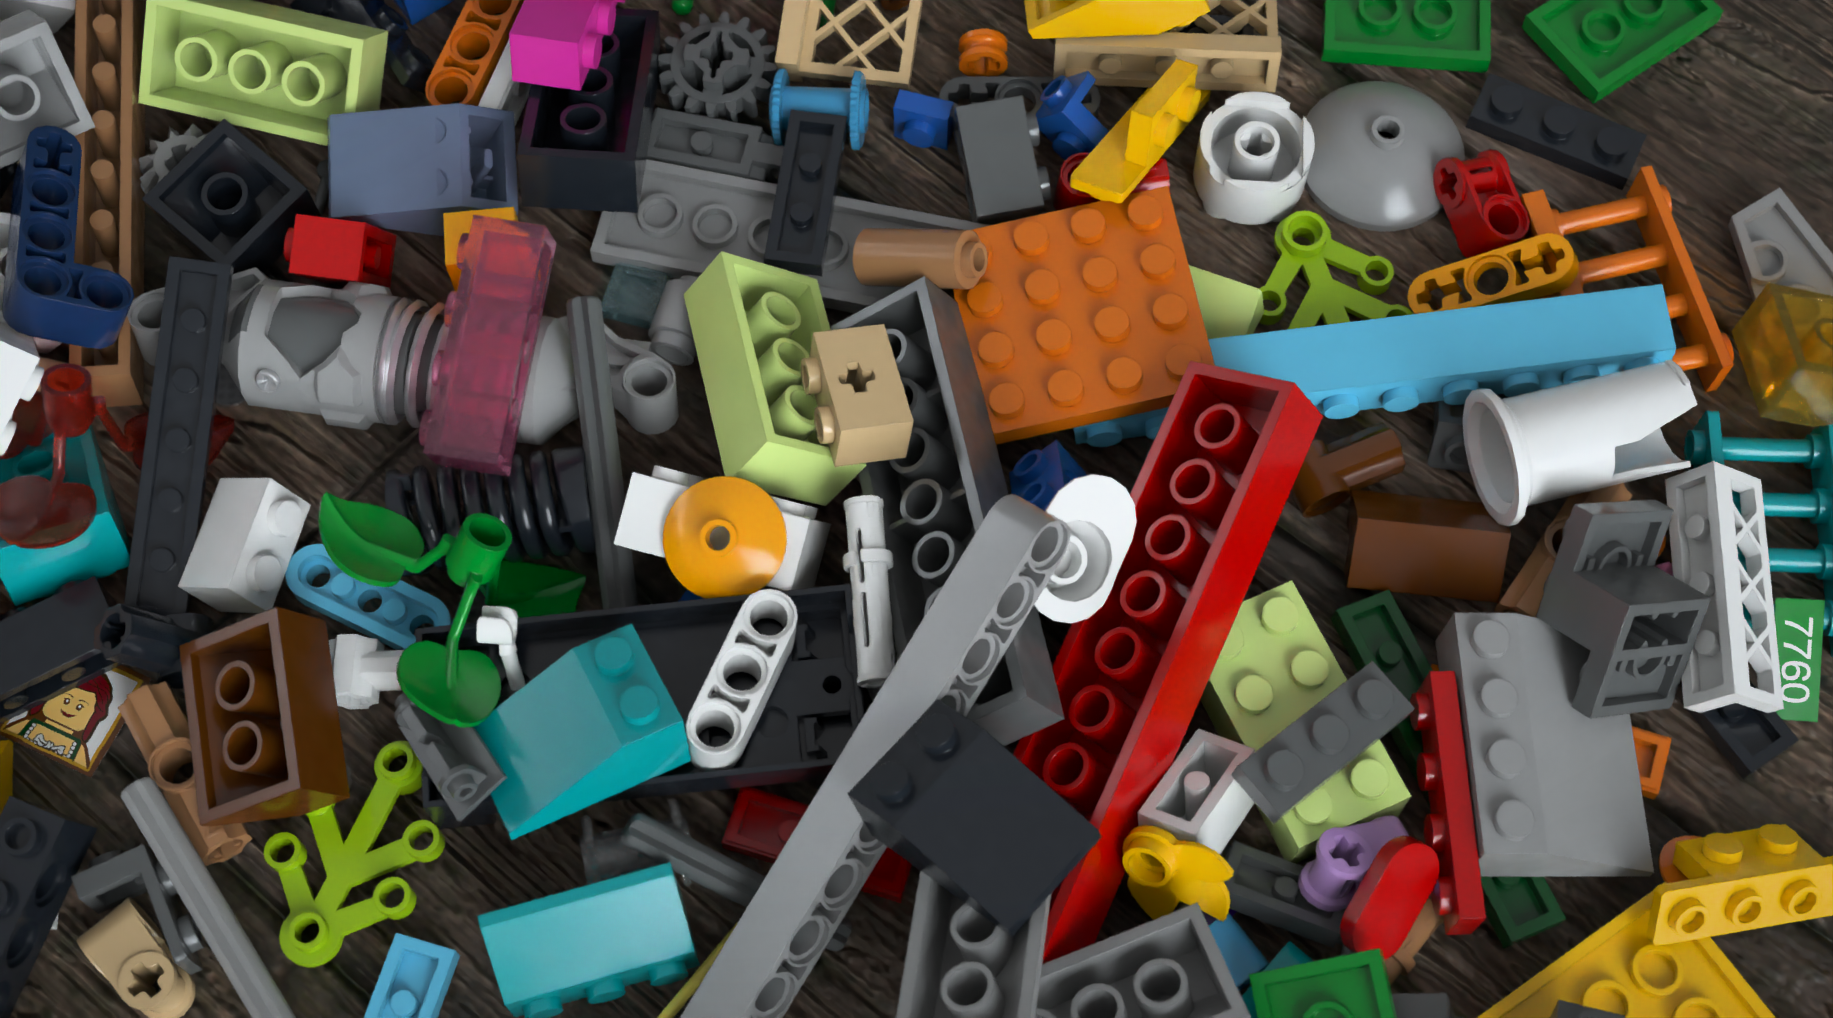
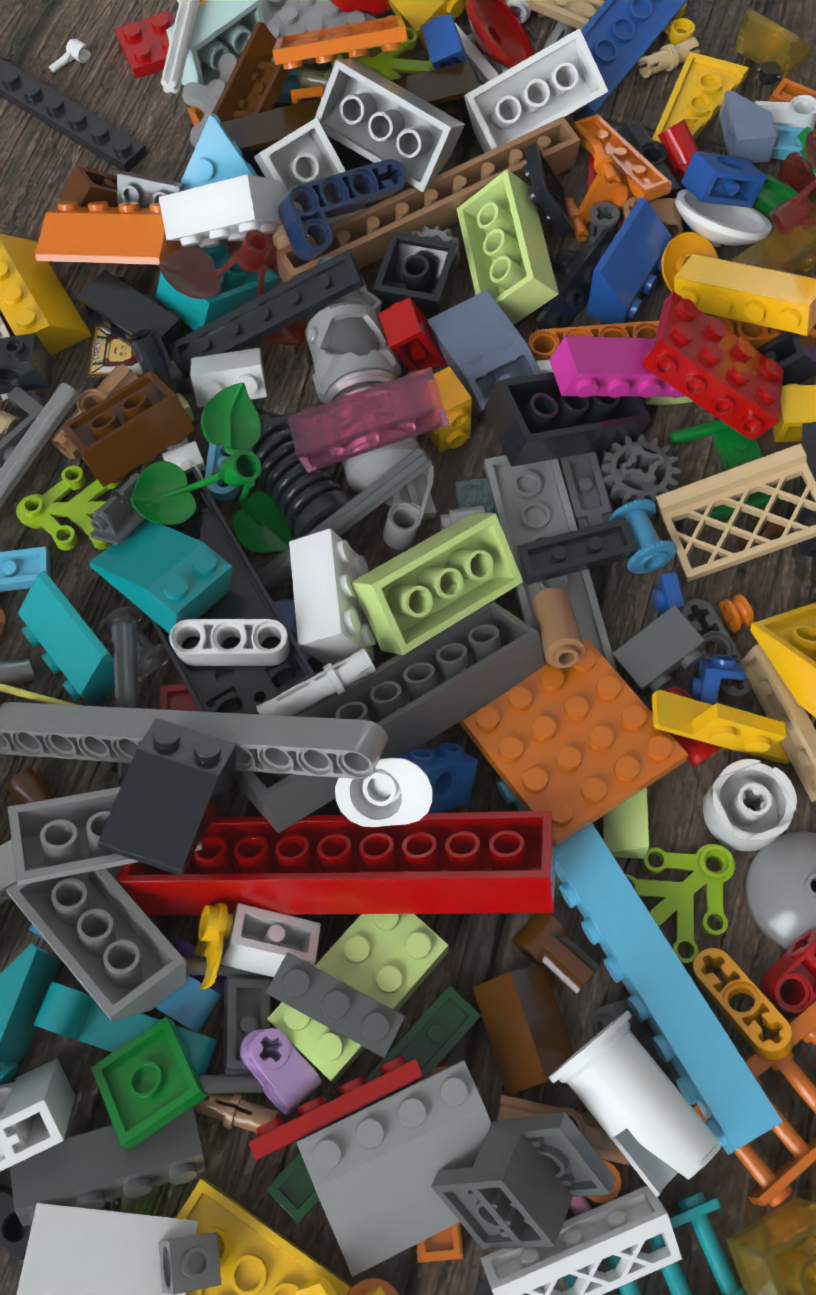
camera: 70 degrees right, 0 degrees up
(499, 627) = (207, 507): white hand -> none
(755, 542) = (322, 601): light orange dish -> none
(857, 395) = (455, 621): tan brick -> none
(1390, 896) = (250, 1090): red tile -> none

